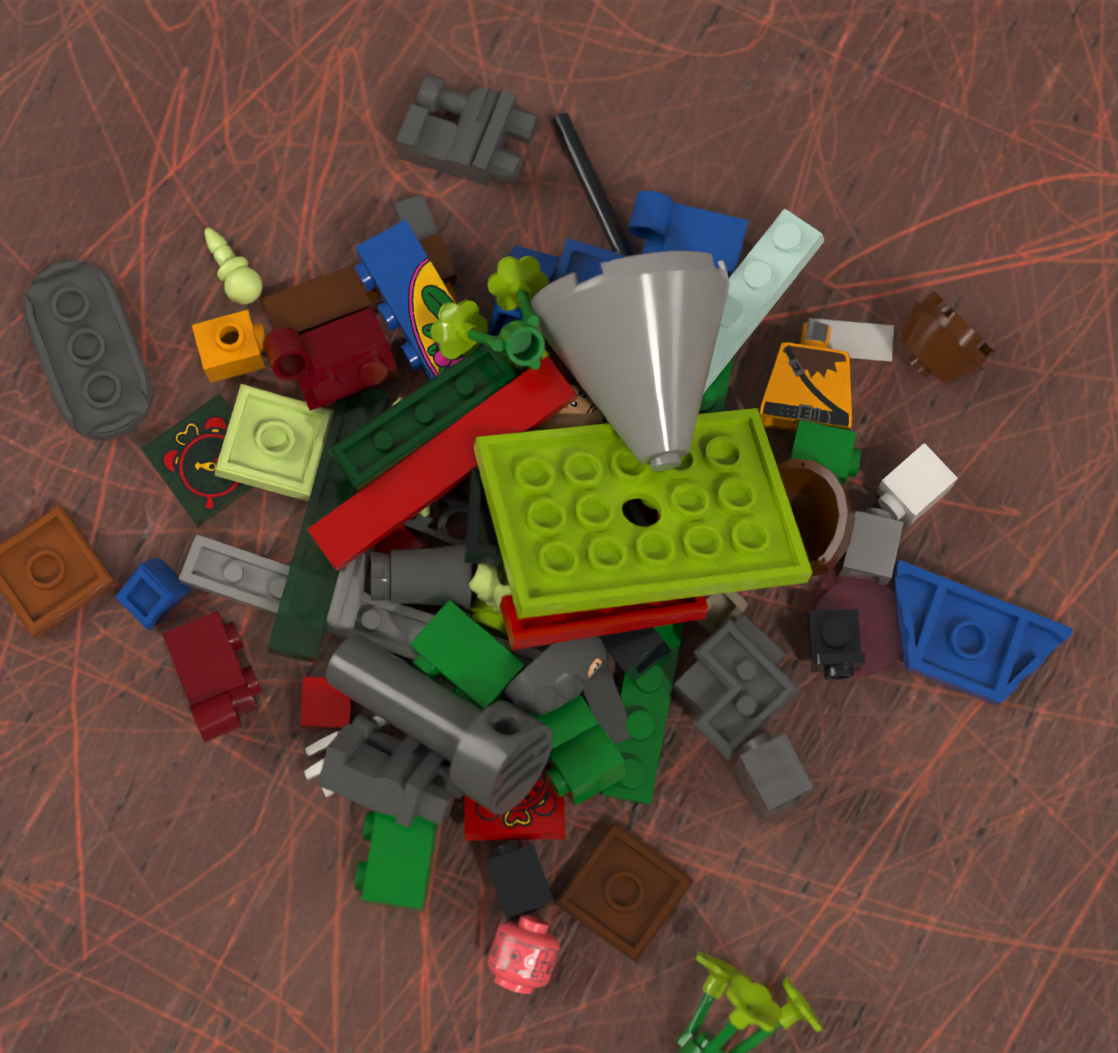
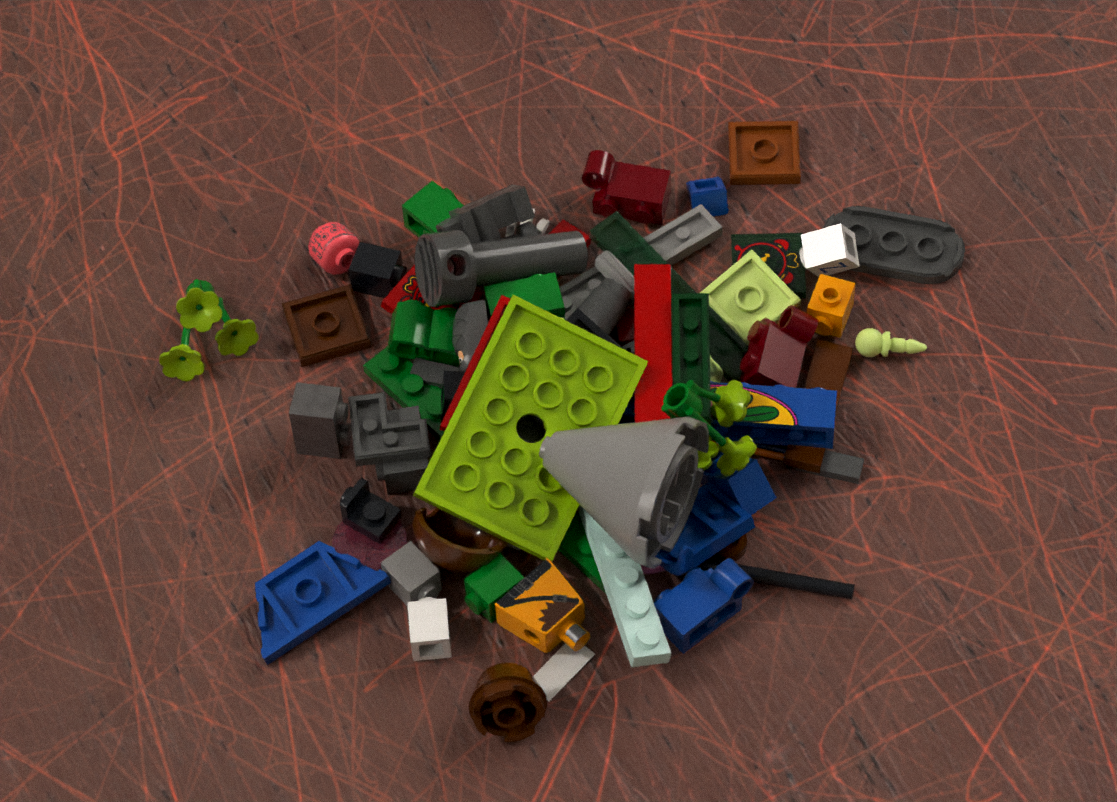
camera: 130 degrees right, 20 degrees down
(157, 391) = (829, 250): none -> white brick
(478, 141) = (872, 519): dark grey hips -> none

